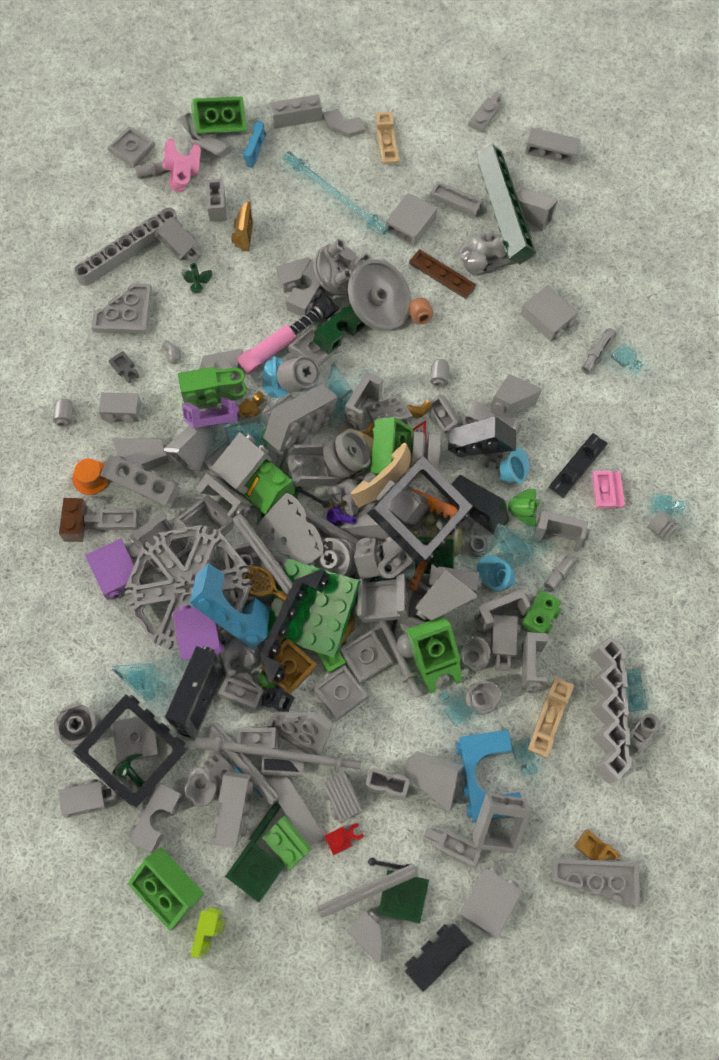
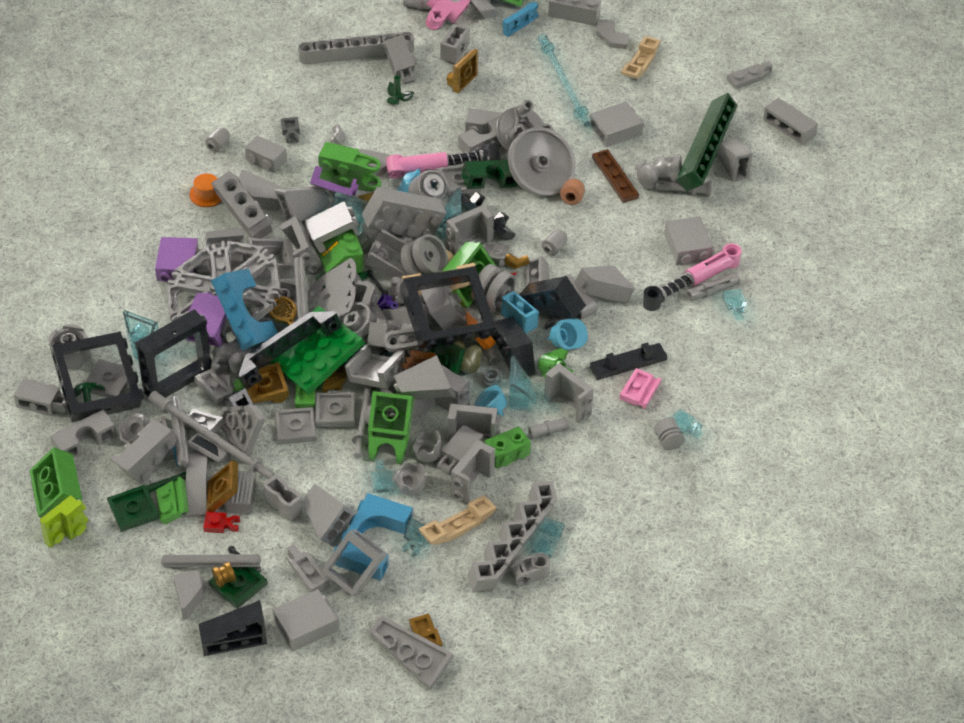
camera: 30 degrees right, 20 degrees down
(72, 519) = (170, 212): reddish brown brick -> none
(113, 519) = (198, 224): light grey hinge -> none
(125, 312) = (320, 93): light grey plate -> none
(326, 805) = (222, 486): none -> pearl gold tile
(329, 526) = (369, 292): none -> light grey bracket
(357, 373) = (499, 221): none -> black hinge
(393, 903) = (223, 574): none -> pearl gold wheel
(456, 198) = (670, 126): light grey plate -> none
(458, 463) = (524, 313): none -> medium azure brick
(577, 349) = (728, 258): none -> piece

